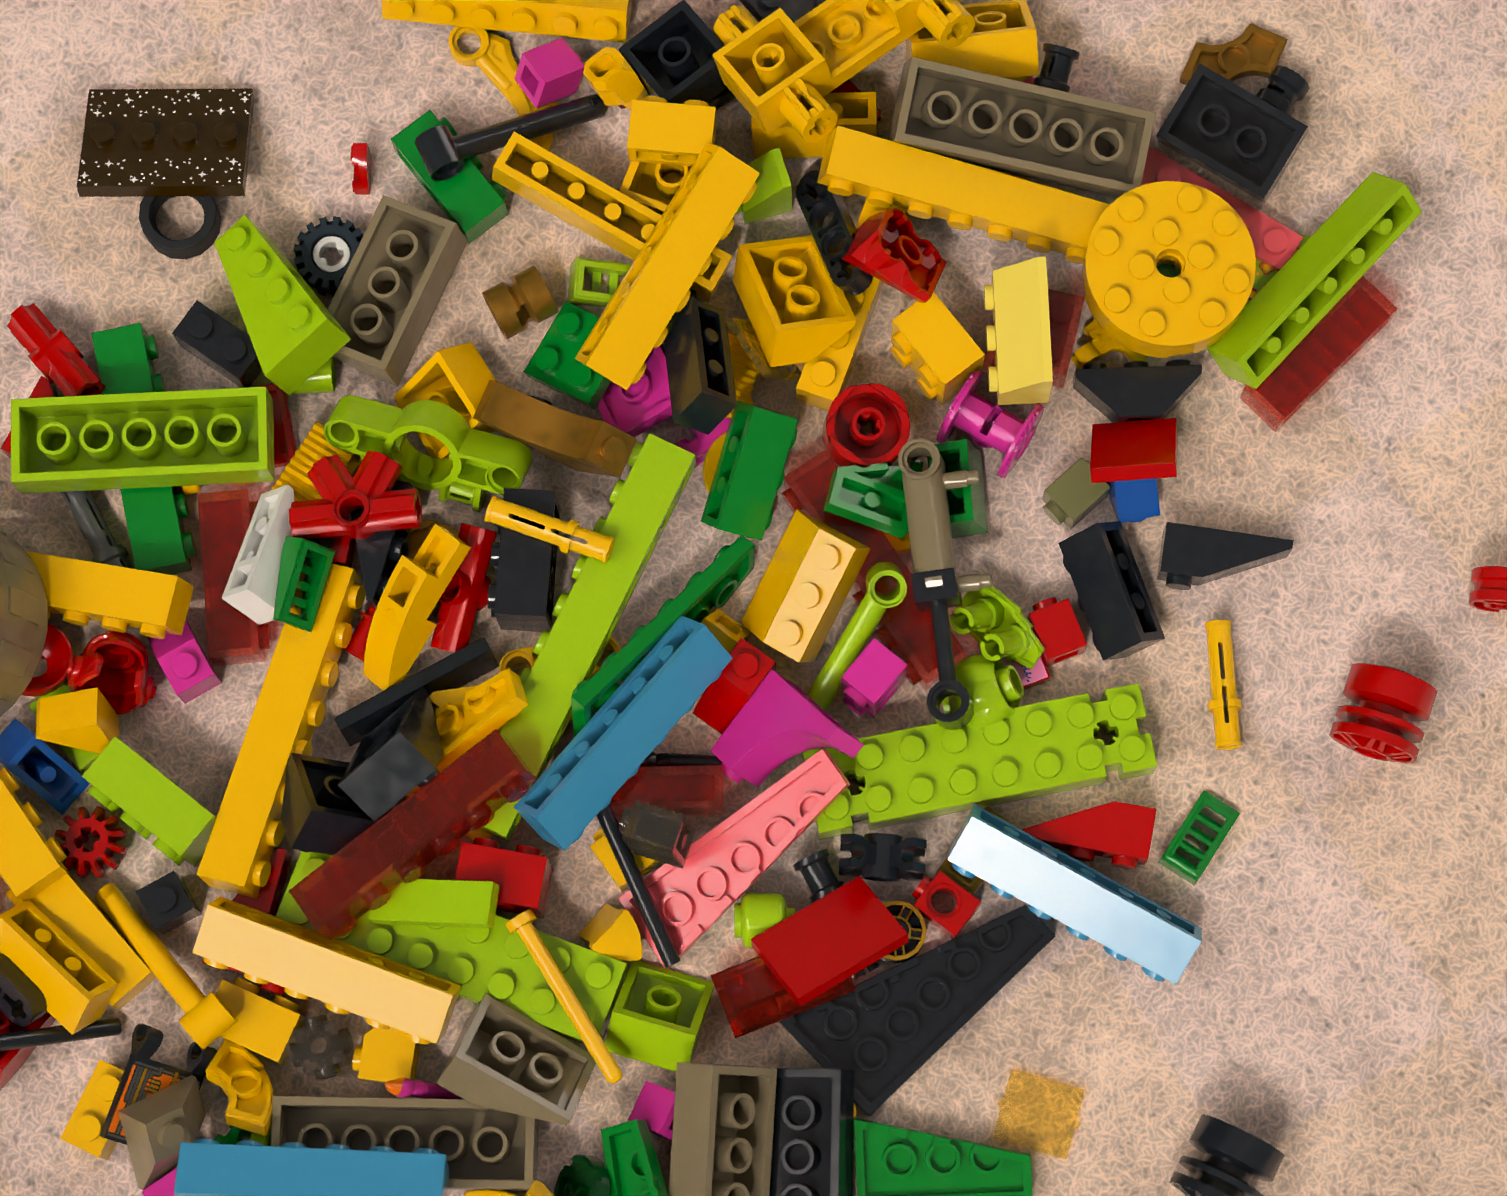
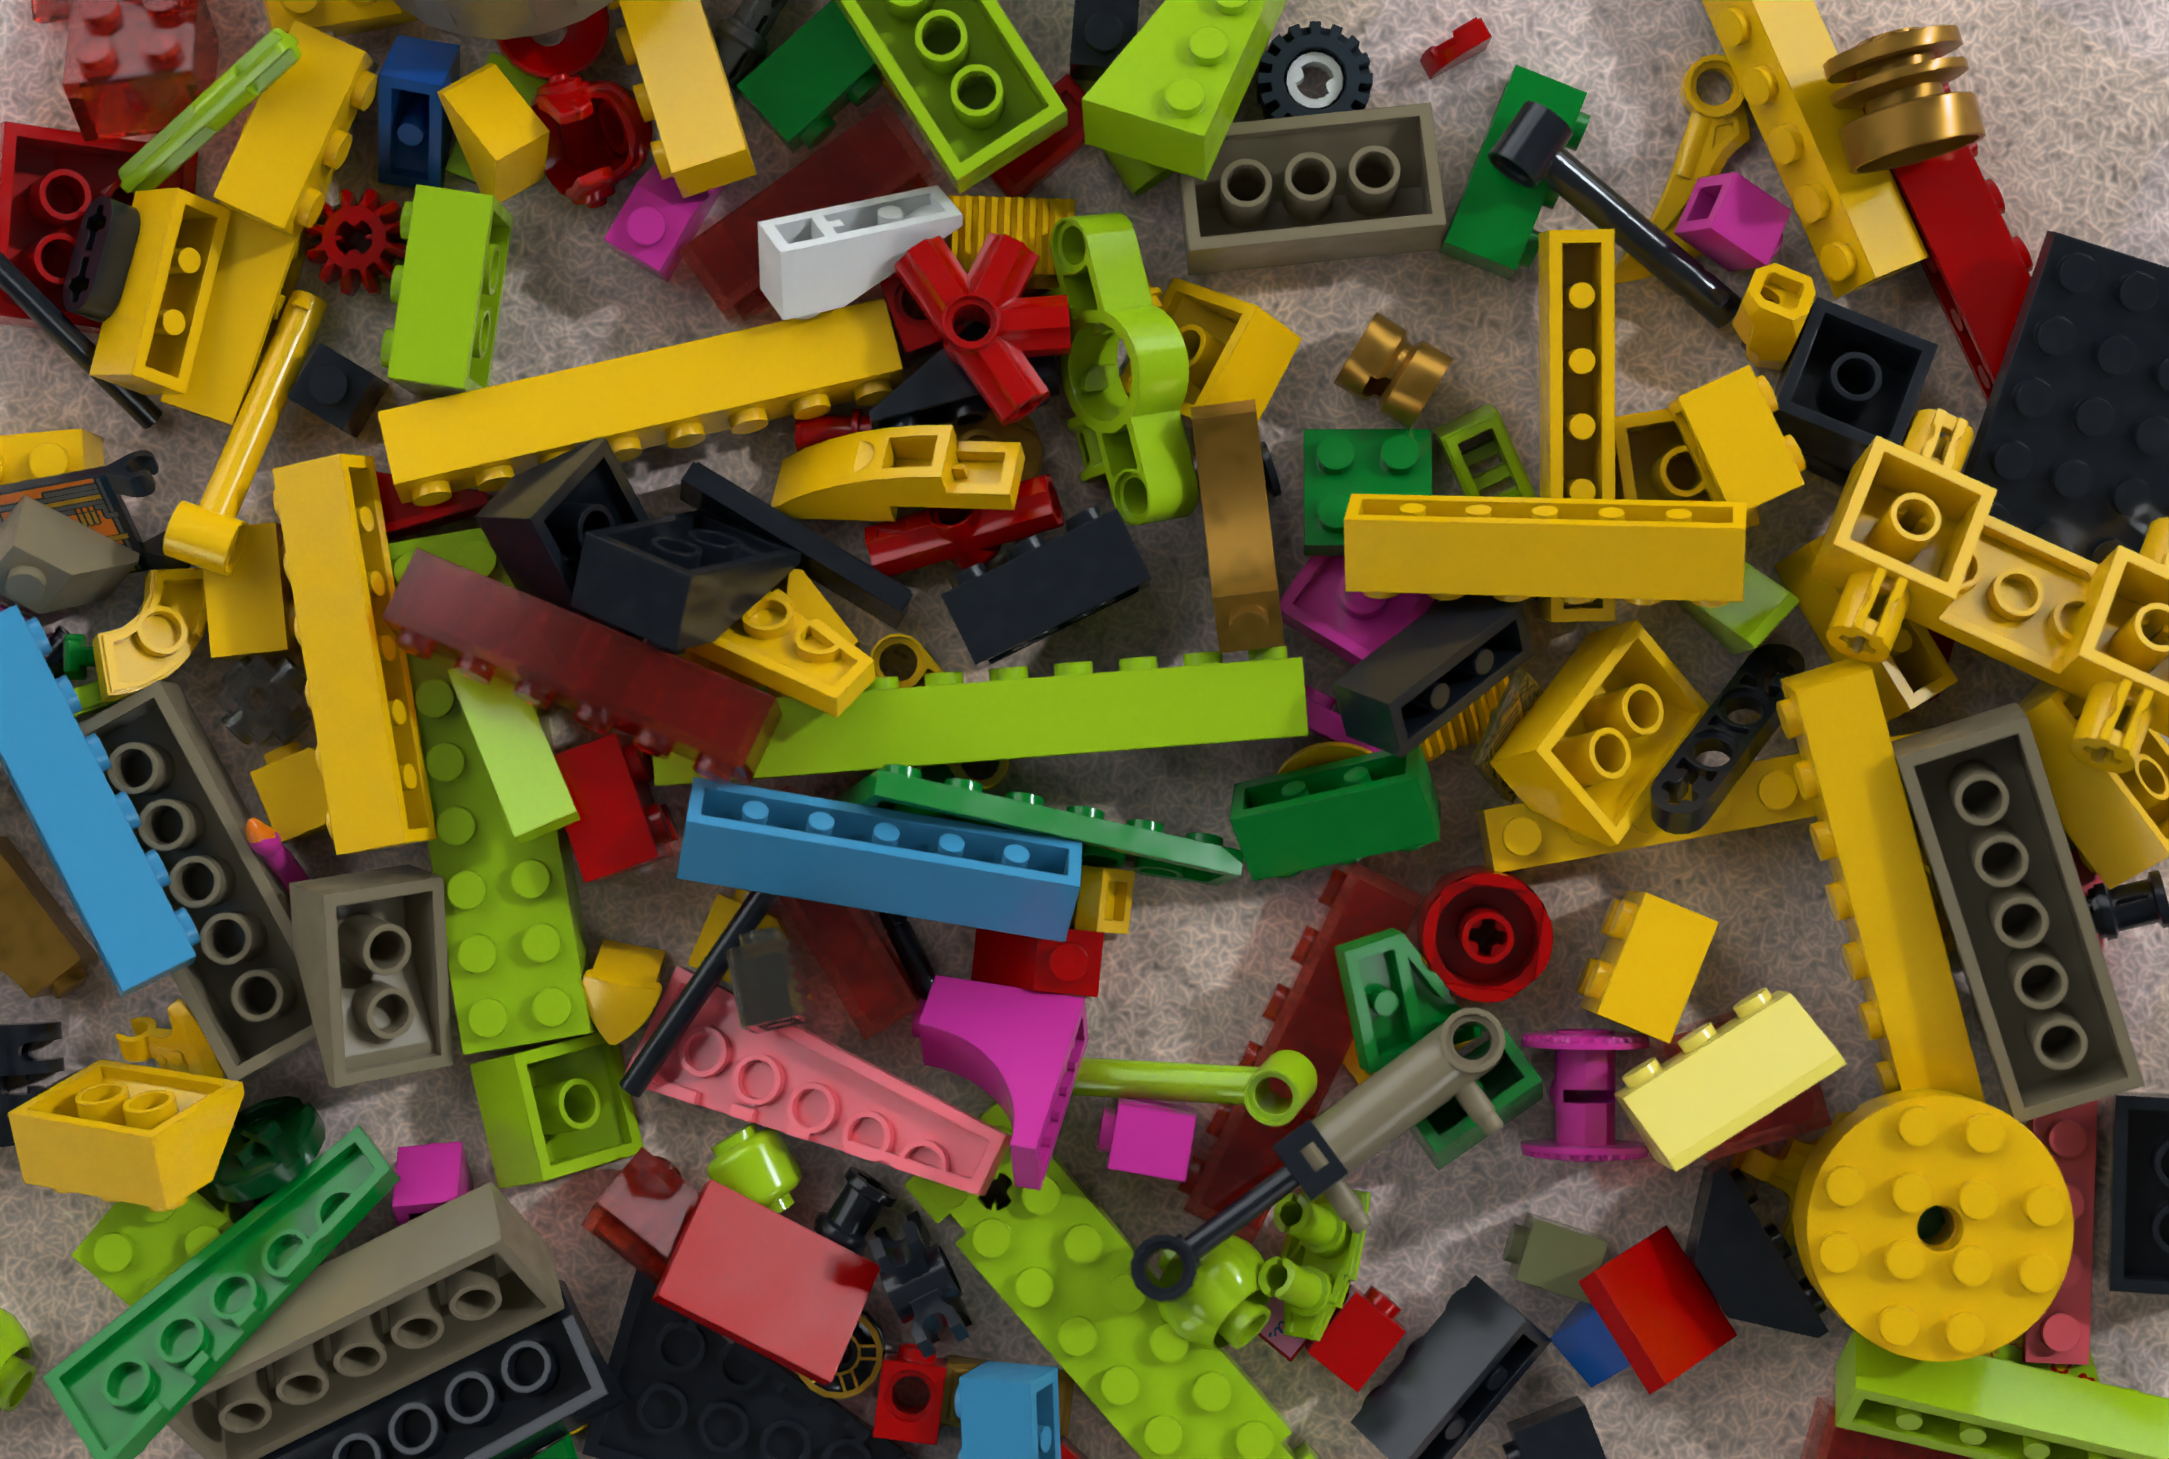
camera: 60 degrees right, 10 degrees up
(316, 572) = (852, 288): green slope -> none
(523, 926) = (555, 875): yellow bar -> none
(597, 545) = (1092, 604): yellow pin -> none
(804, 587) = (1219, 973): yellow slope -> none
(896, 255) = (1739, 846): red slope -> none

